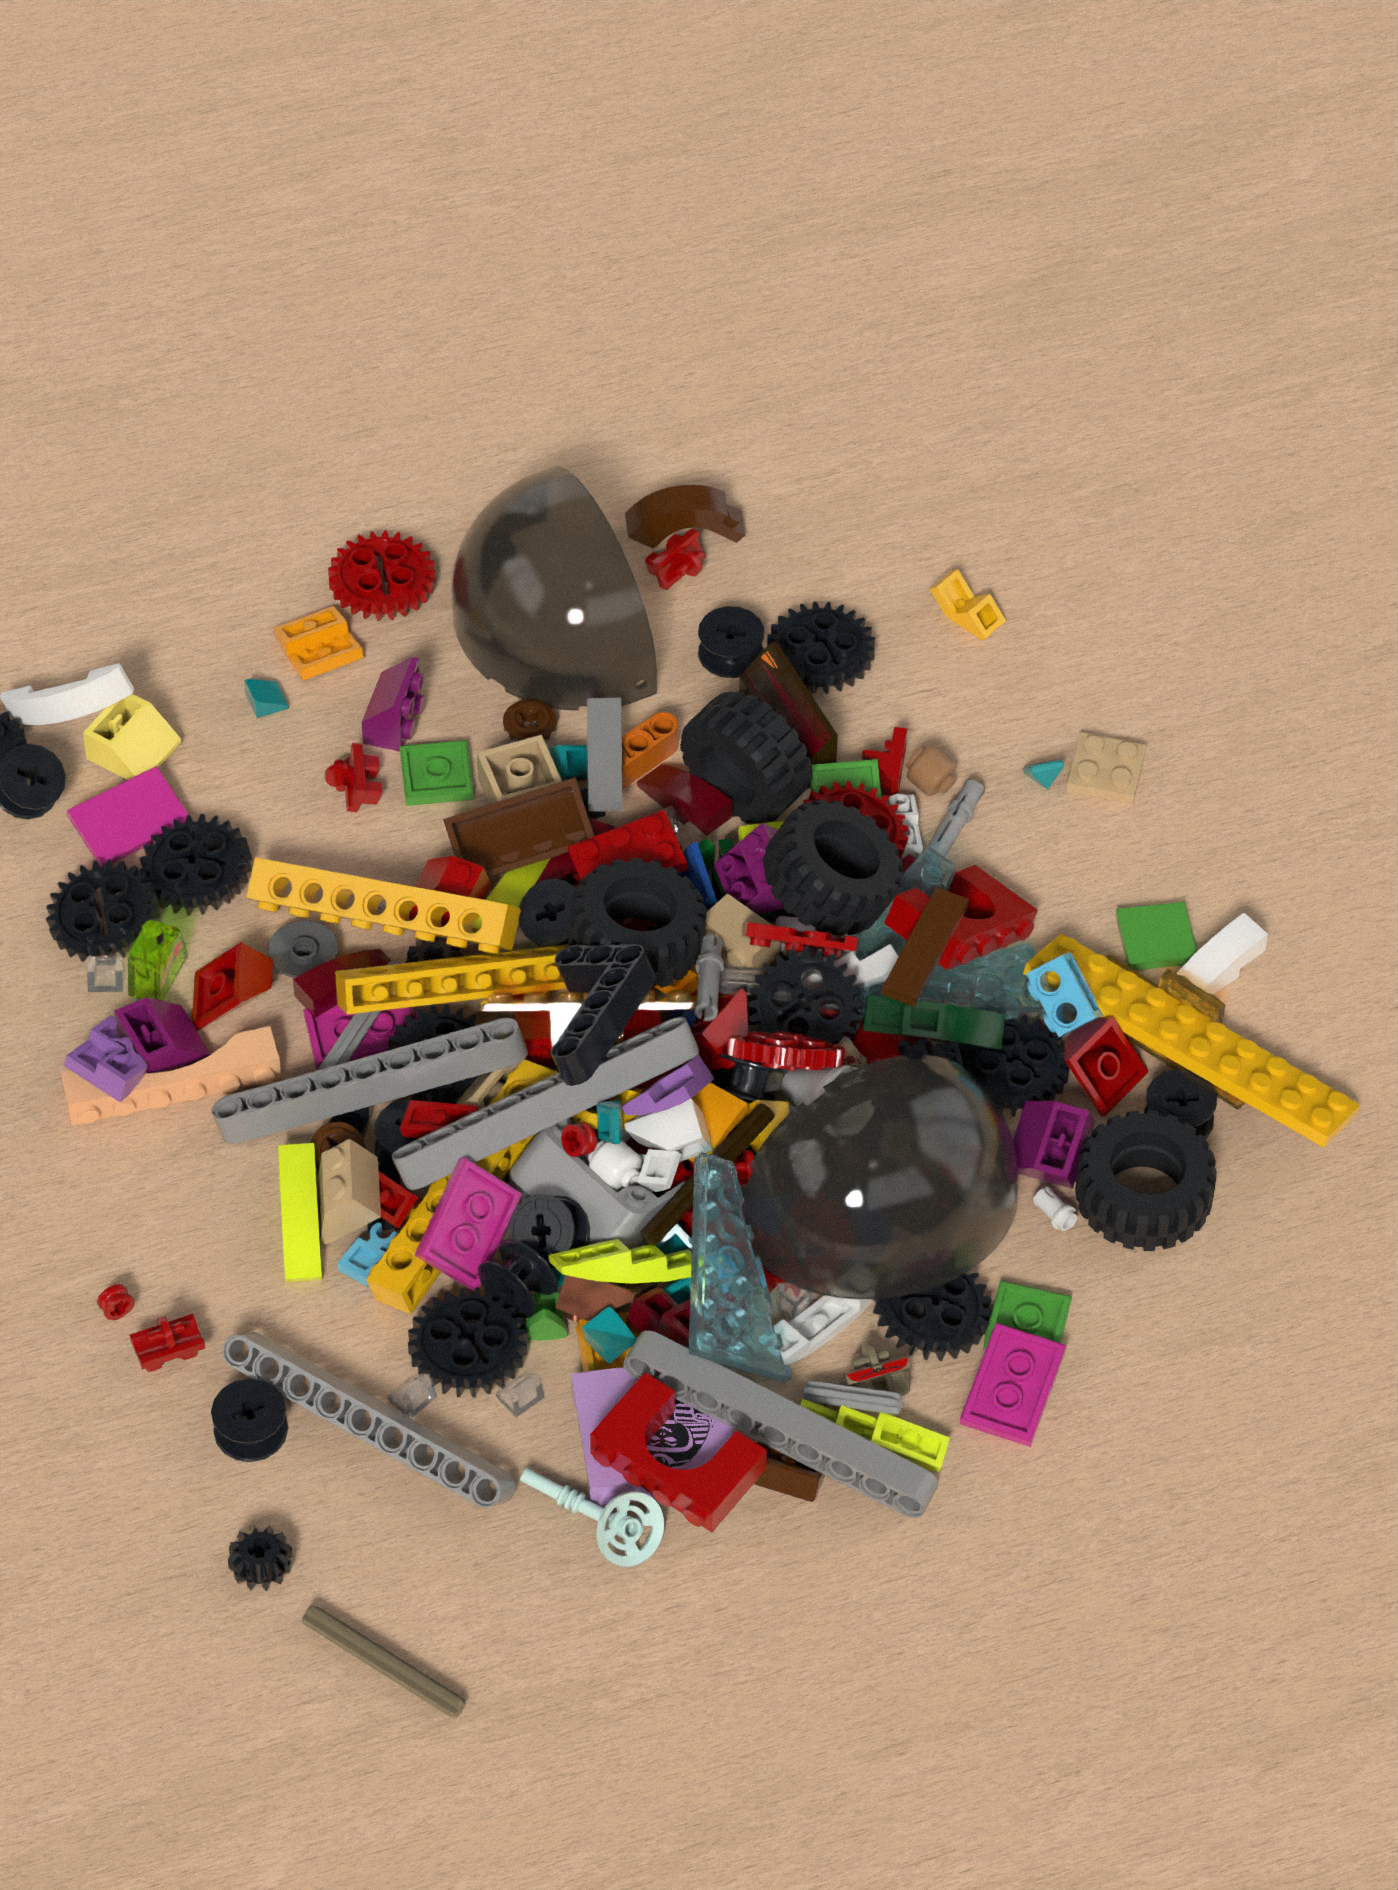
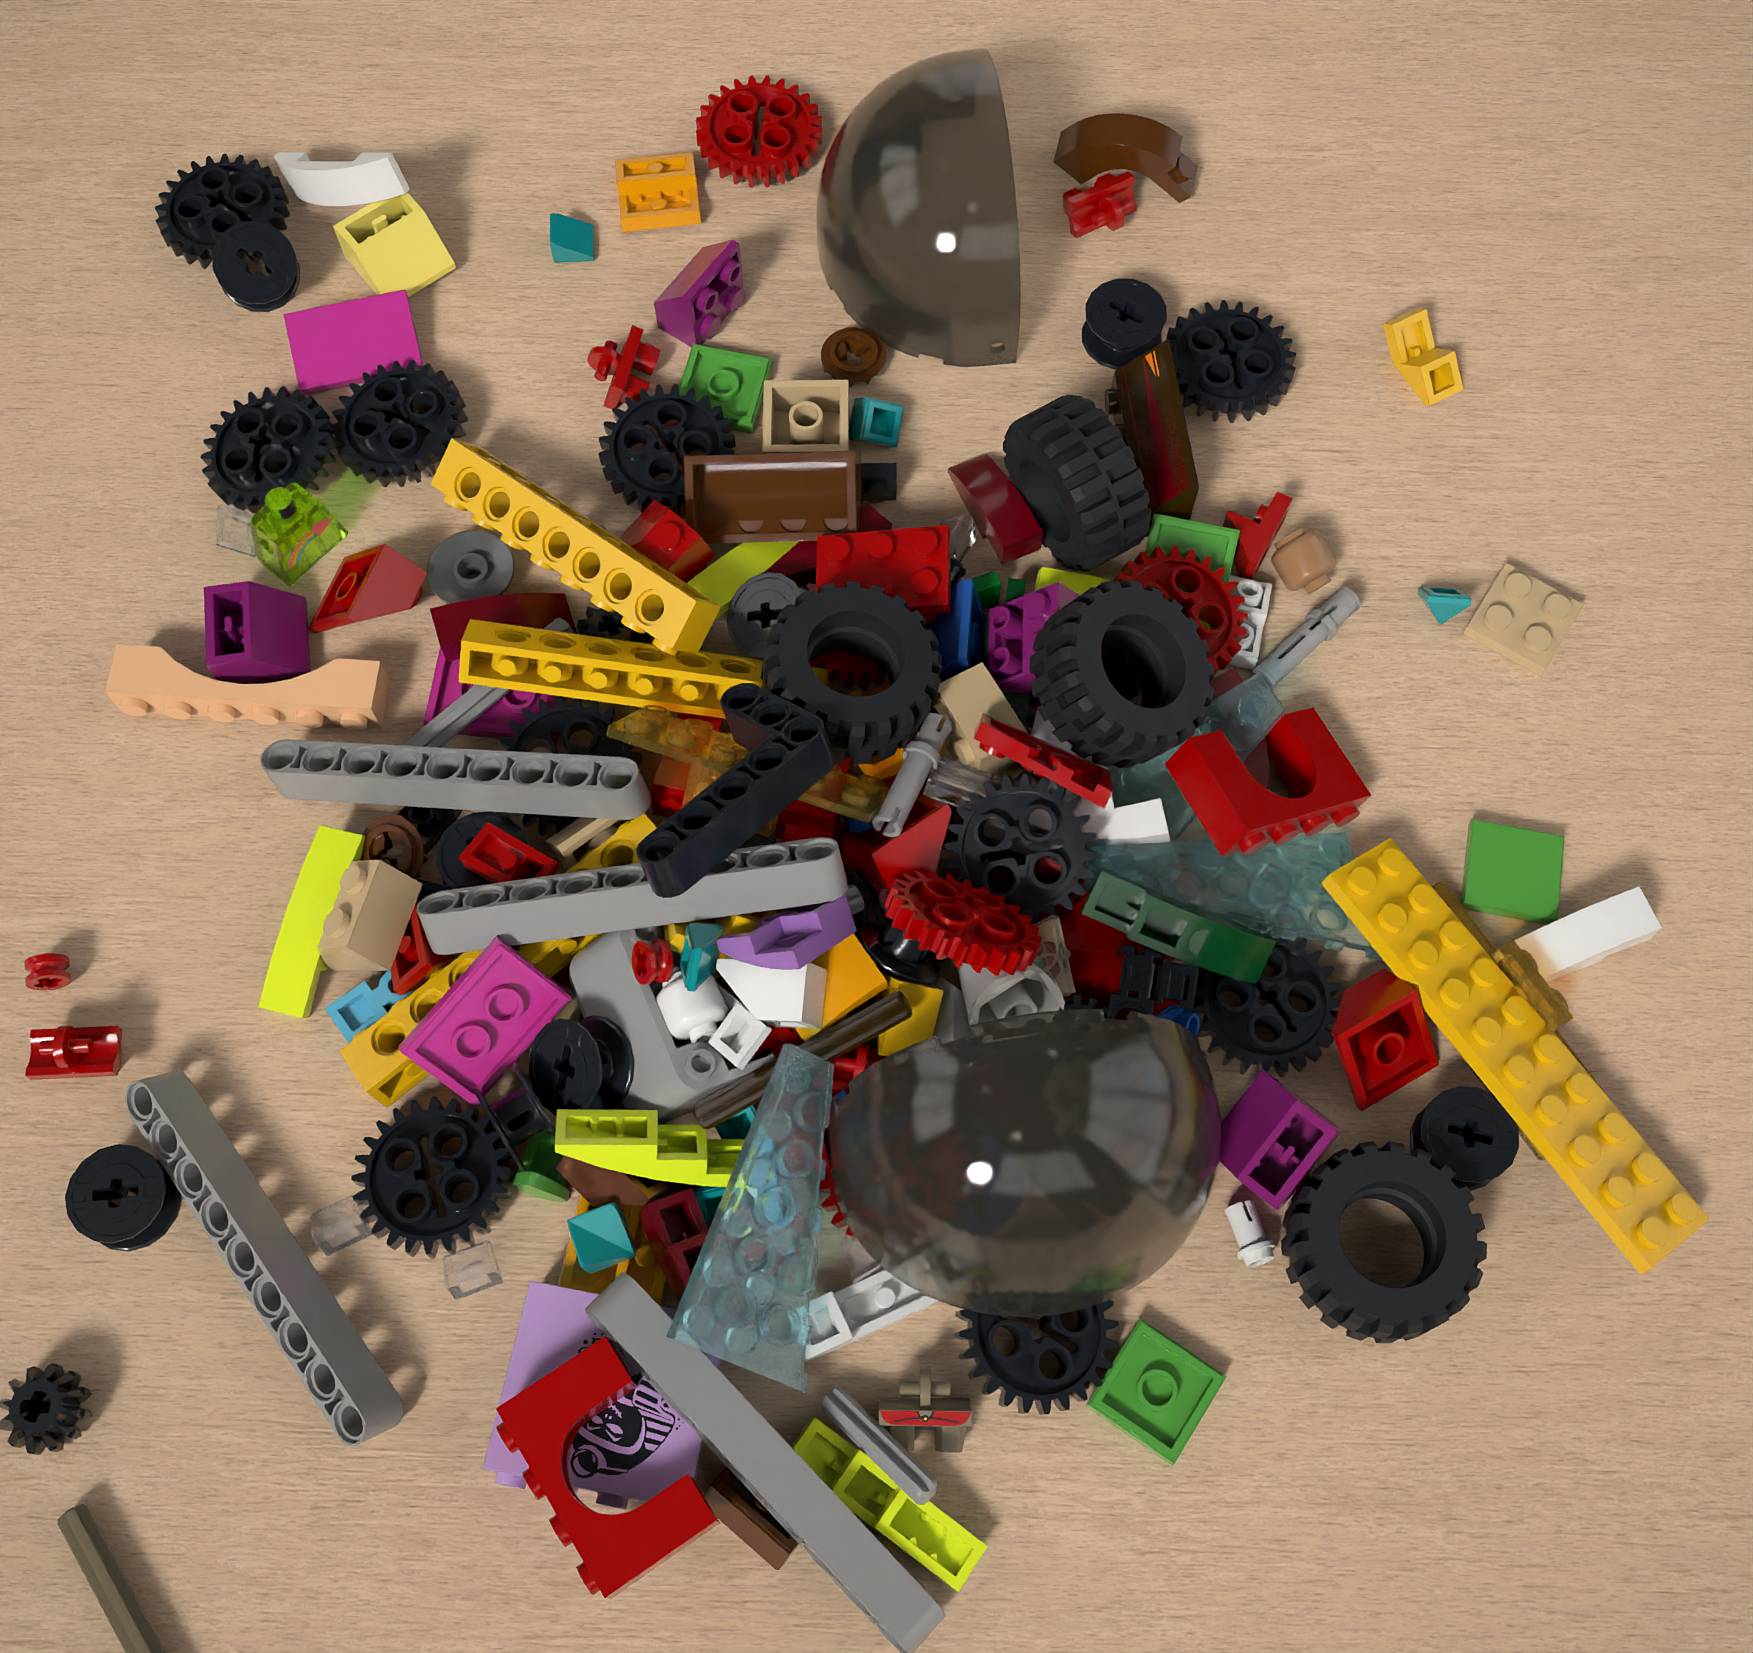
camera: 20 degrees right, 15 degrees up
(108, 1061) = (170, 648): medium lavender slope -> none
(413, 824) = (636, 470): none -> black gear
(604, 754) = (913, 427): light grey tile -> none
(618, 1523) = (508, 1532): light aqua dish -> none
(648, 745) = (948, 446): orange beam -> none
(925, 947) = (1198, 829): reddish brown tile -> none
(1013, 1384) = (1101, 1491): dark pink tile -> none
(1072, 990) = (1375, 940): medium azure brick -> none

